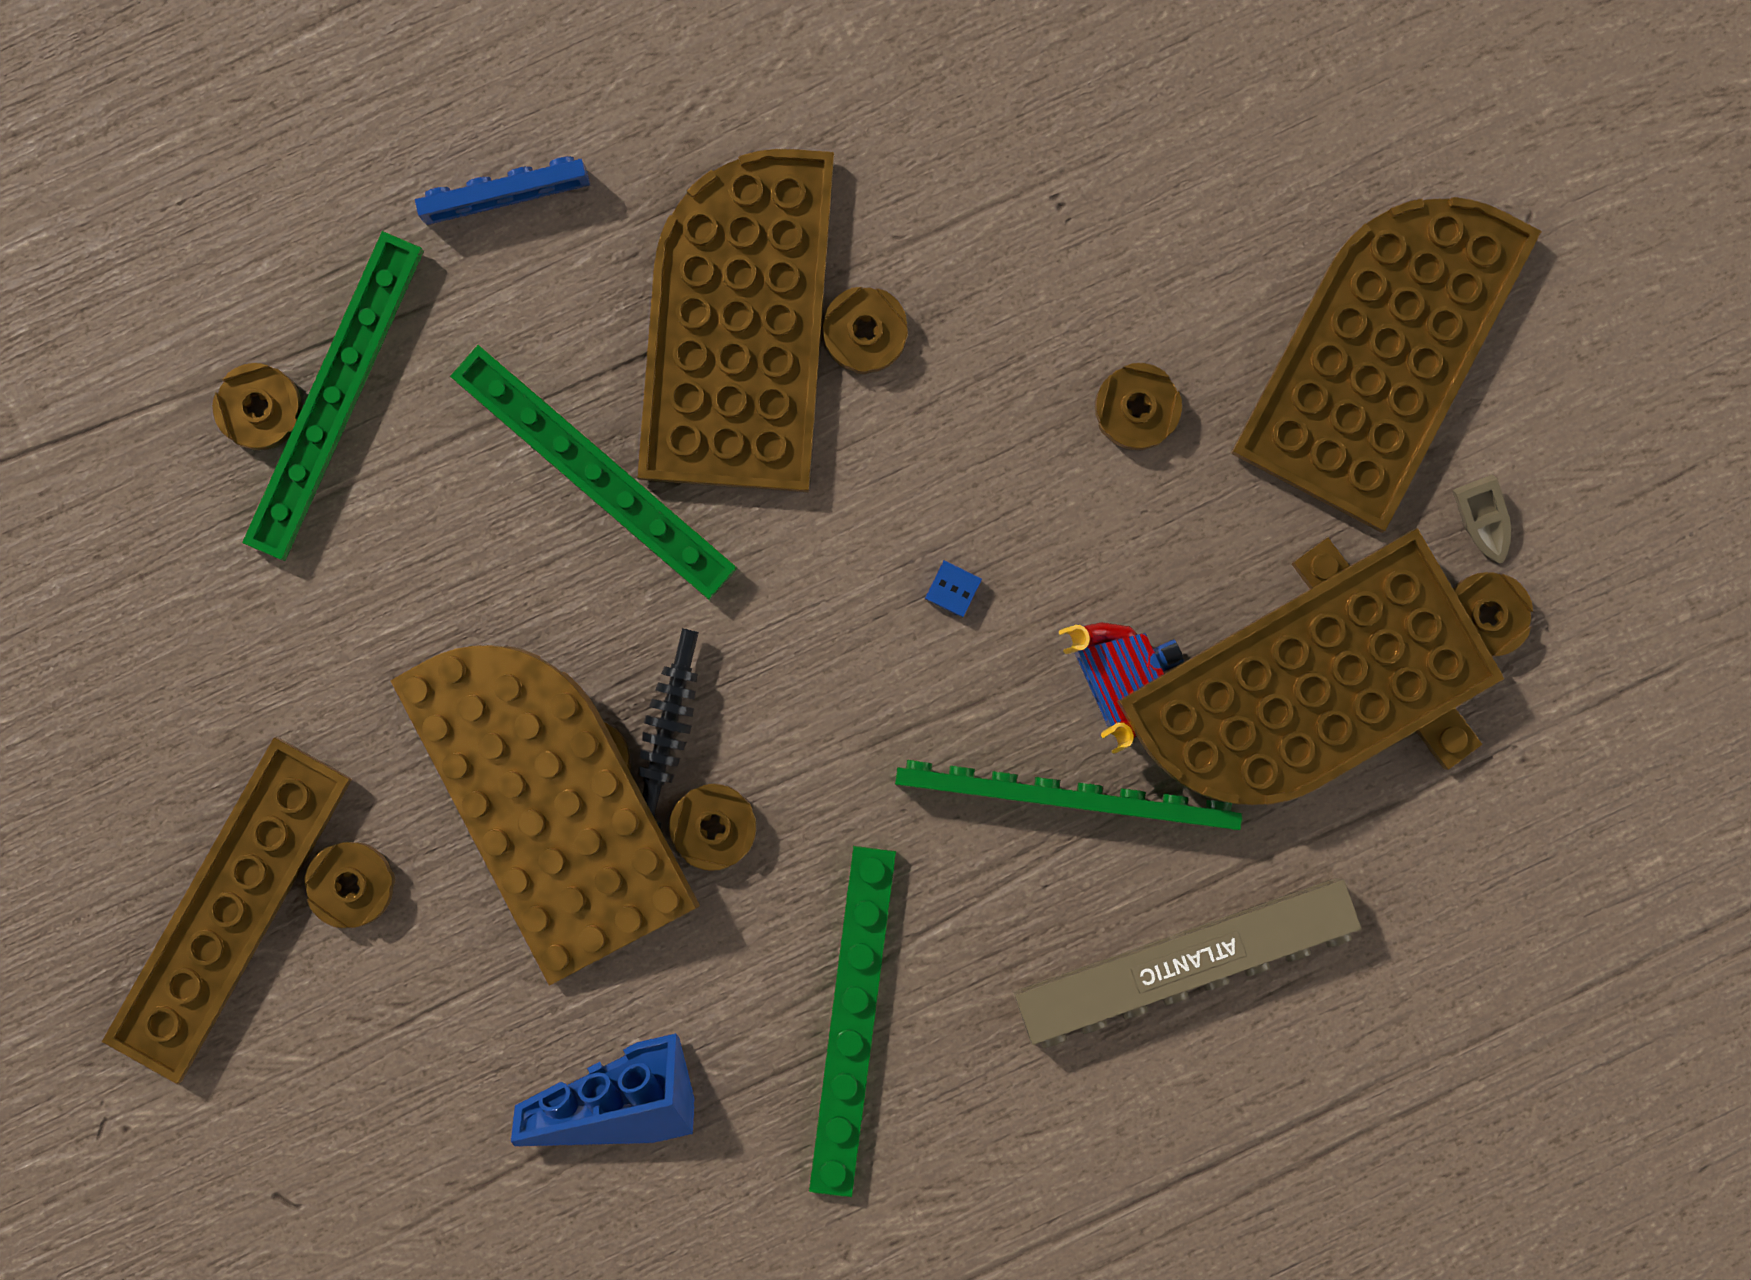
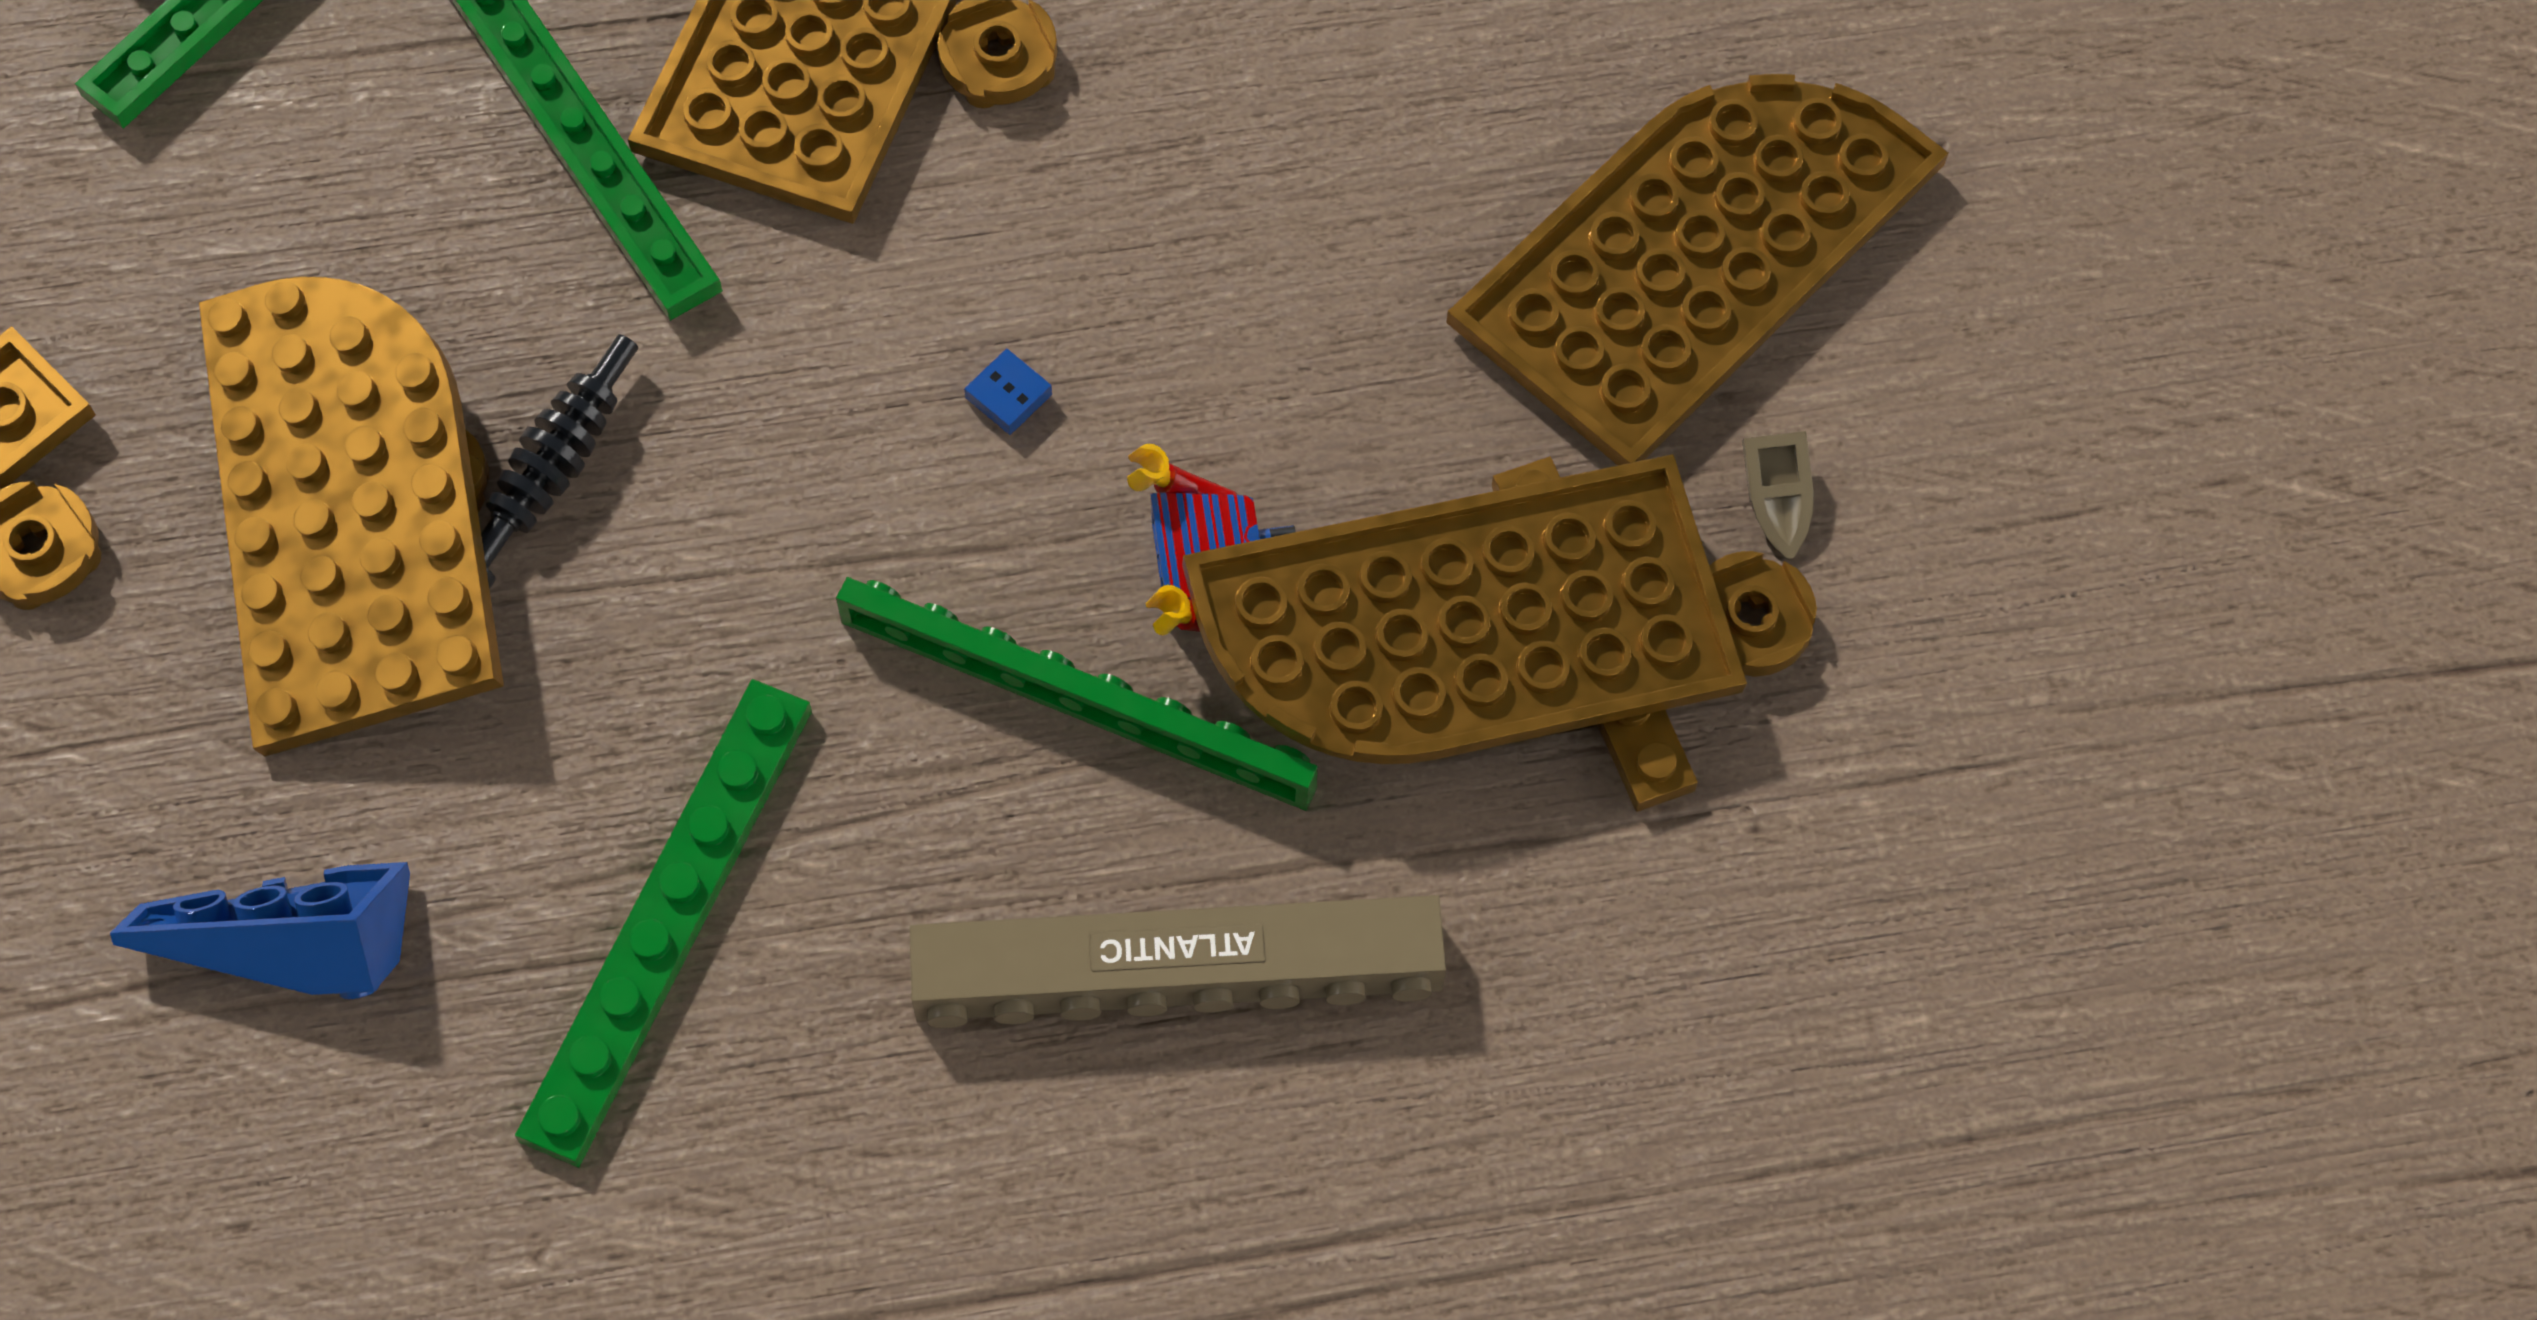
camera: 15 degrees right, 20 degrees down
(692, 841) = (578, 634): pearl gold plate -> none
(1158, 392) = (1335, 262): pearl gold plate -> none

